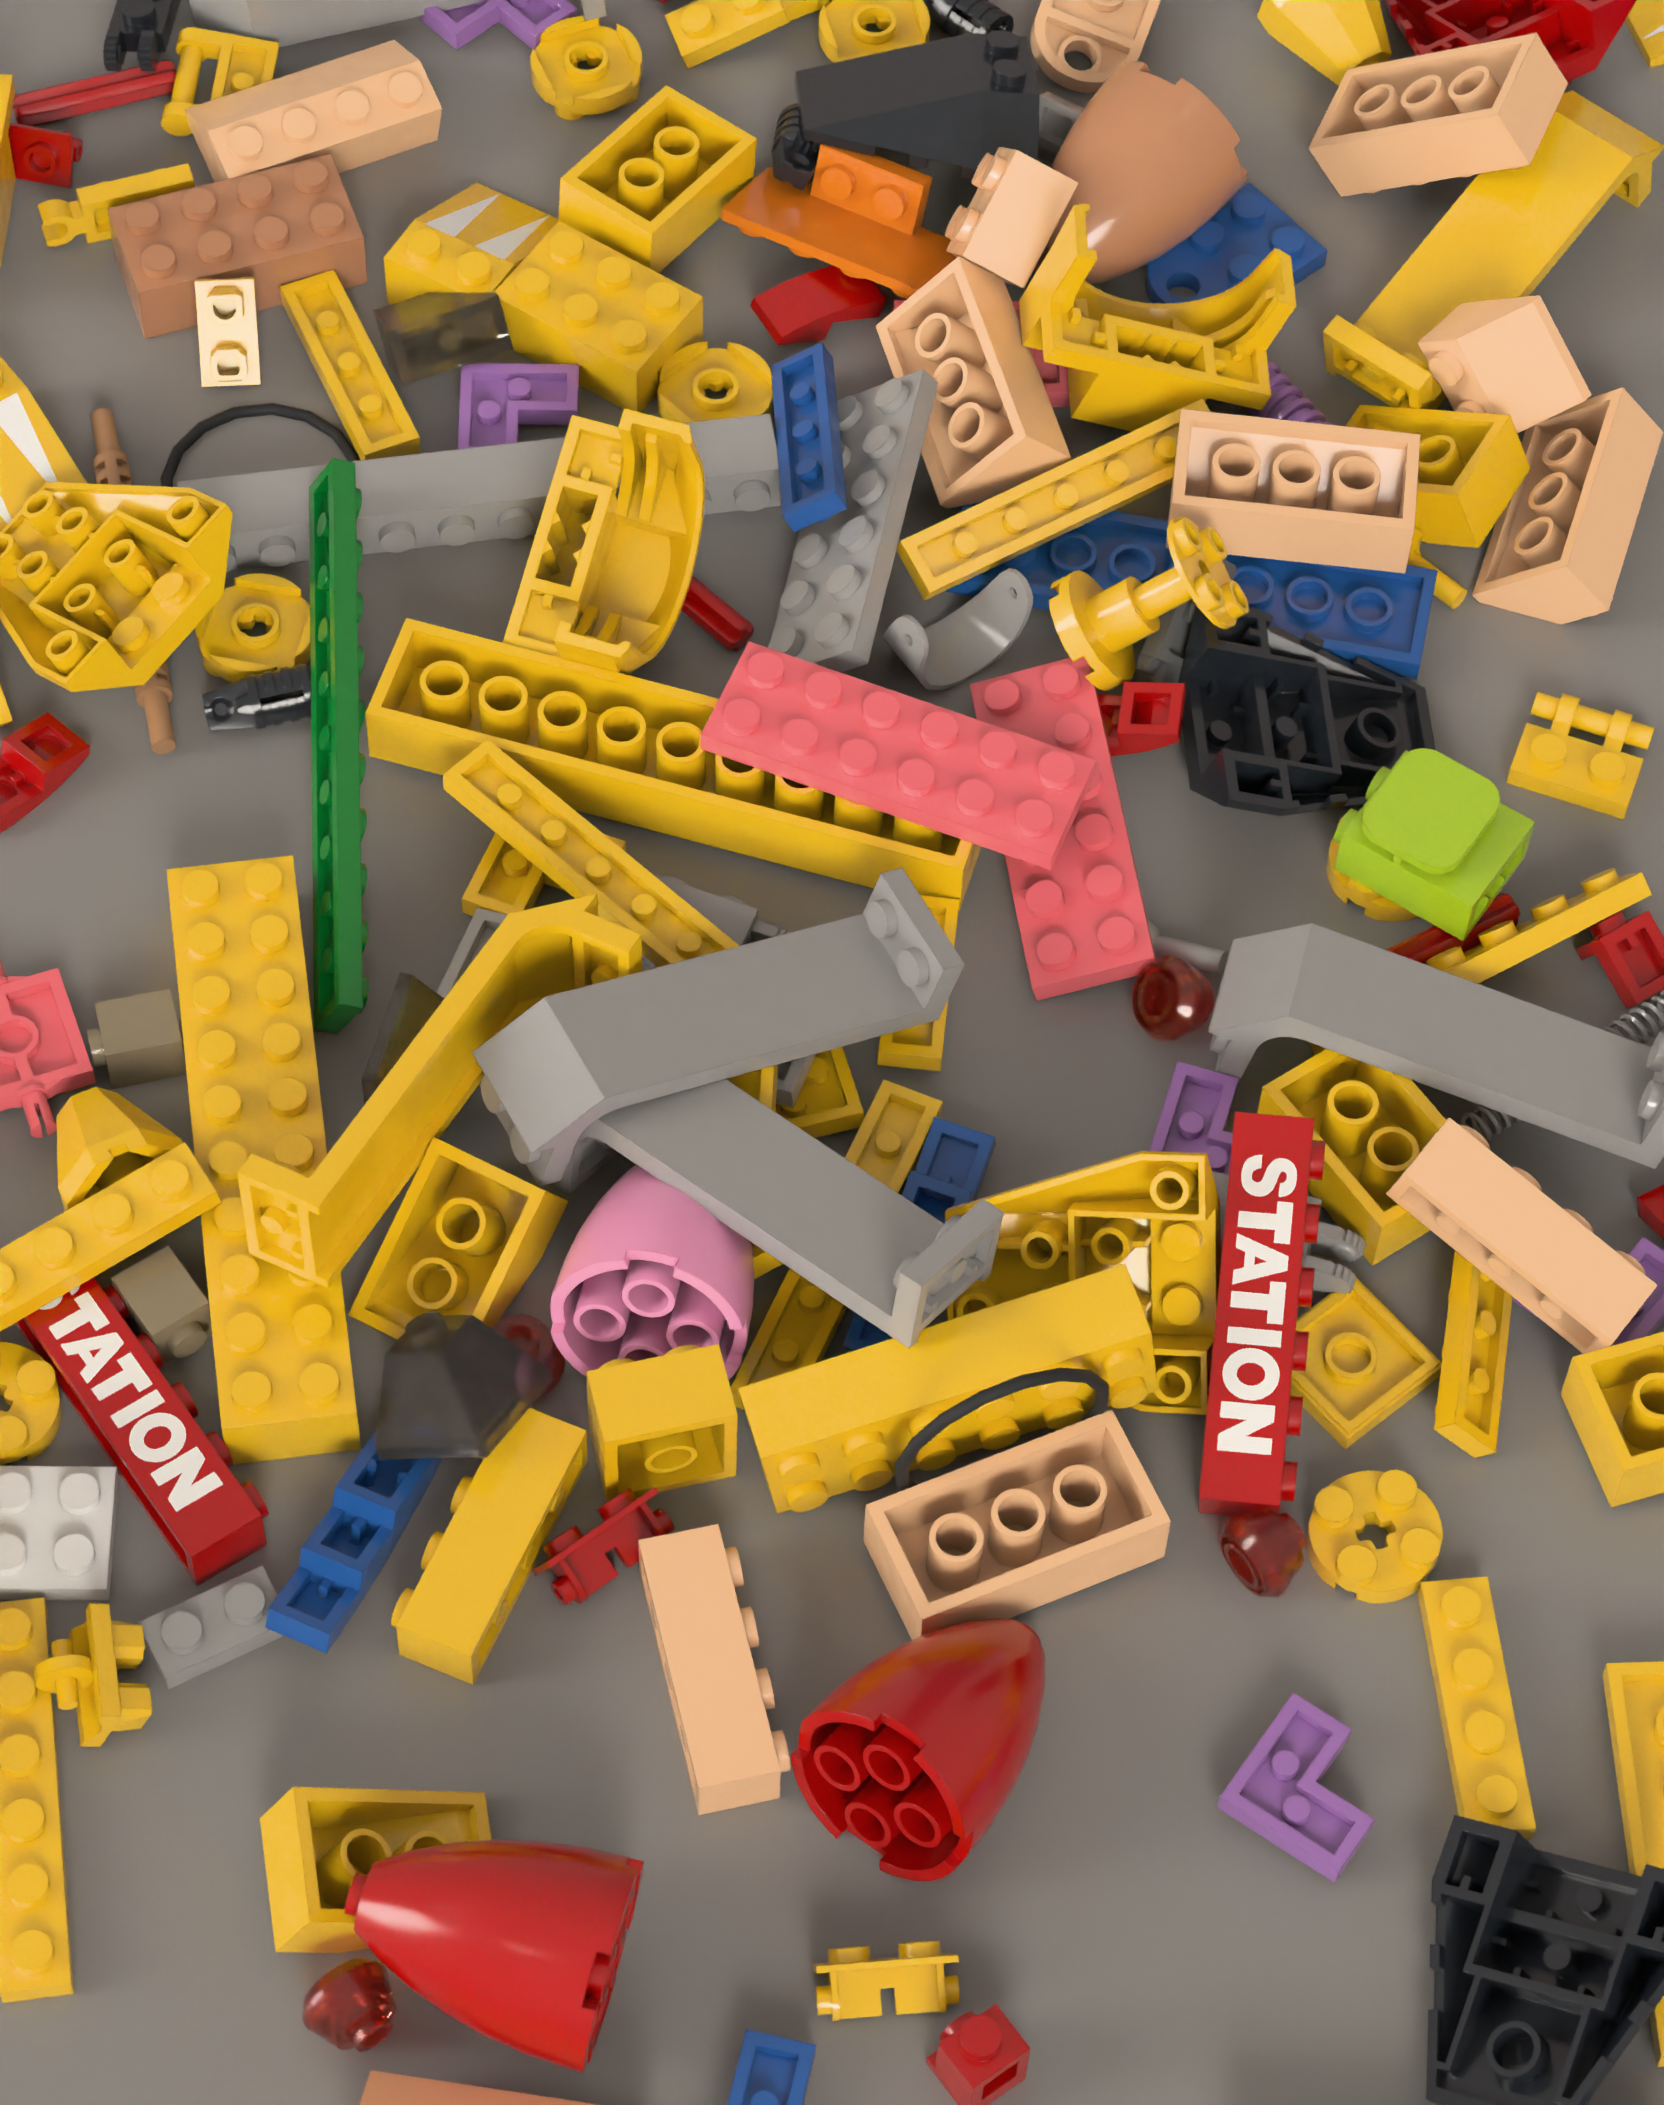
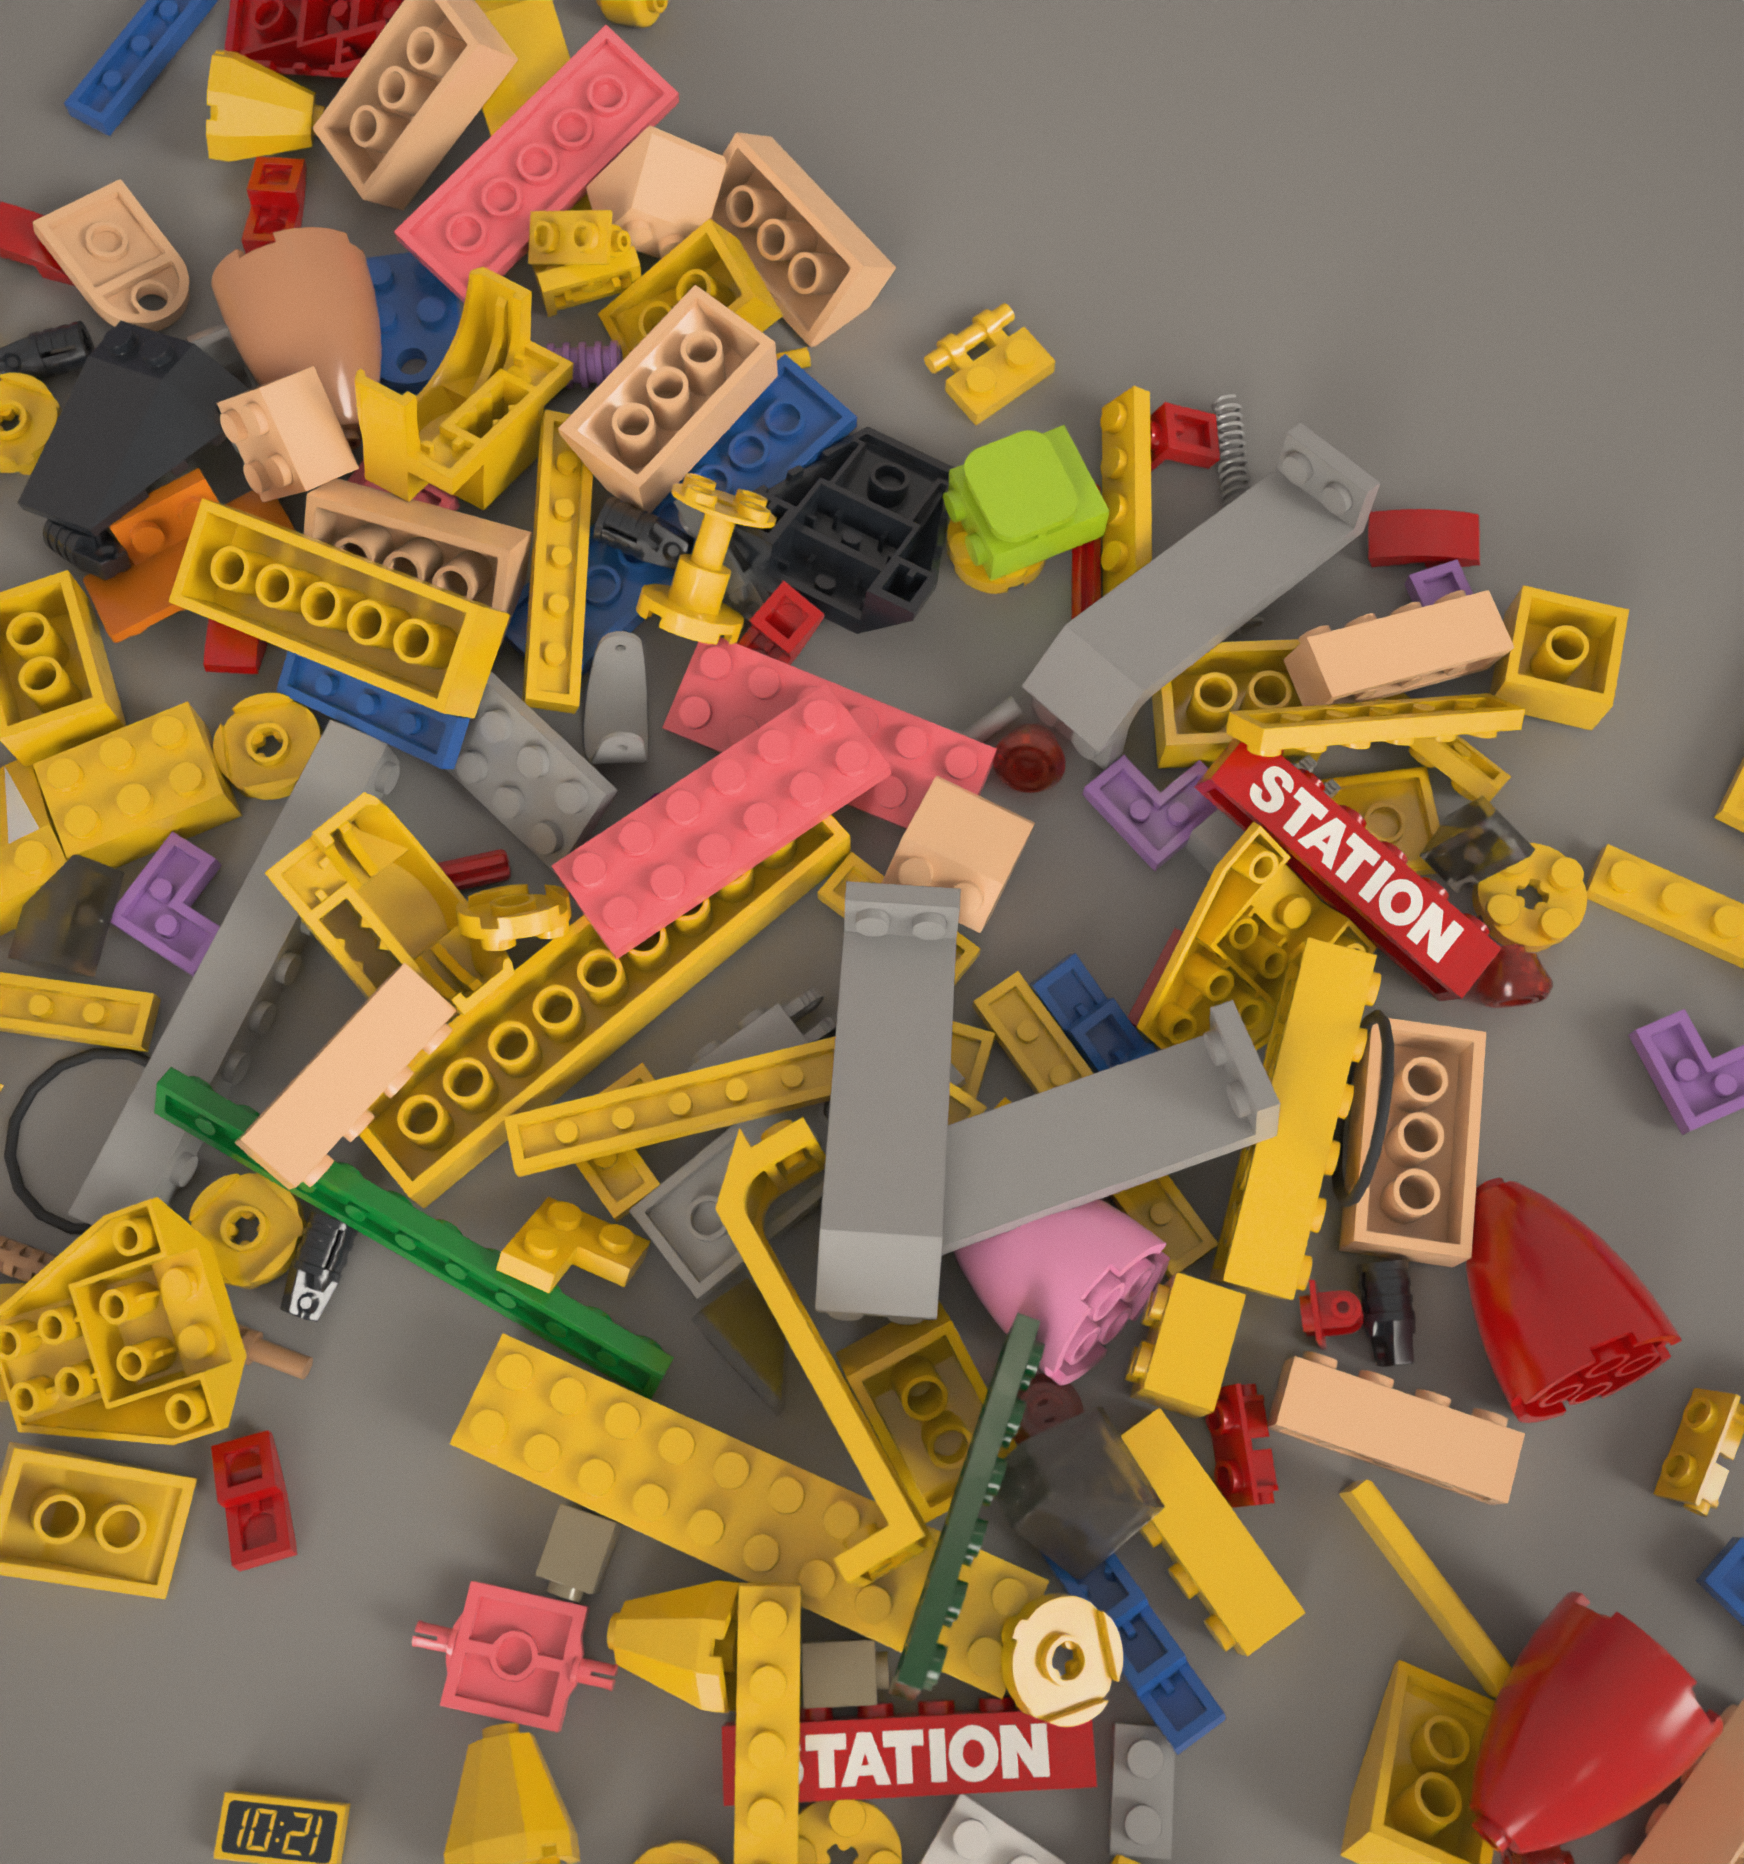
camera: 55 degrees left, 15 degrees up
(289, 1410) = (1028, 1654): none -> plate
(370, 1269) = (963, 1529): none -> dark green plate
(417, 867) = (566, 1236): none -> yellow plate
(435, 588) = (346, 1077): none -> light nougat brick
(586, 1746) = (1427, 1585): none -> yellow tile
(682, 640) = (511, 913): none -> yellow plate
(777, 1532) = (1330, 1313): none -> red hinge
(833, 1604) = (1388, 1311): none -> black hinge
(866, 343) = (339, 609): none -> yellow brick
(1020, 981) = (961, 845): none -> light nougat slope
(1140, 537) = (641, 534): none -> black hinge
(1264, 93) = (276, 199): none -> red slope
(1380, 1428) = (1474, 845): none -> clear smoke slope
(1394, 320) = (575, 238): none -> yellow hinge
(1436, 1262) = (1366, 722): none -> yellow plate
(1453, 251) = (537, 161): none -> coral plate

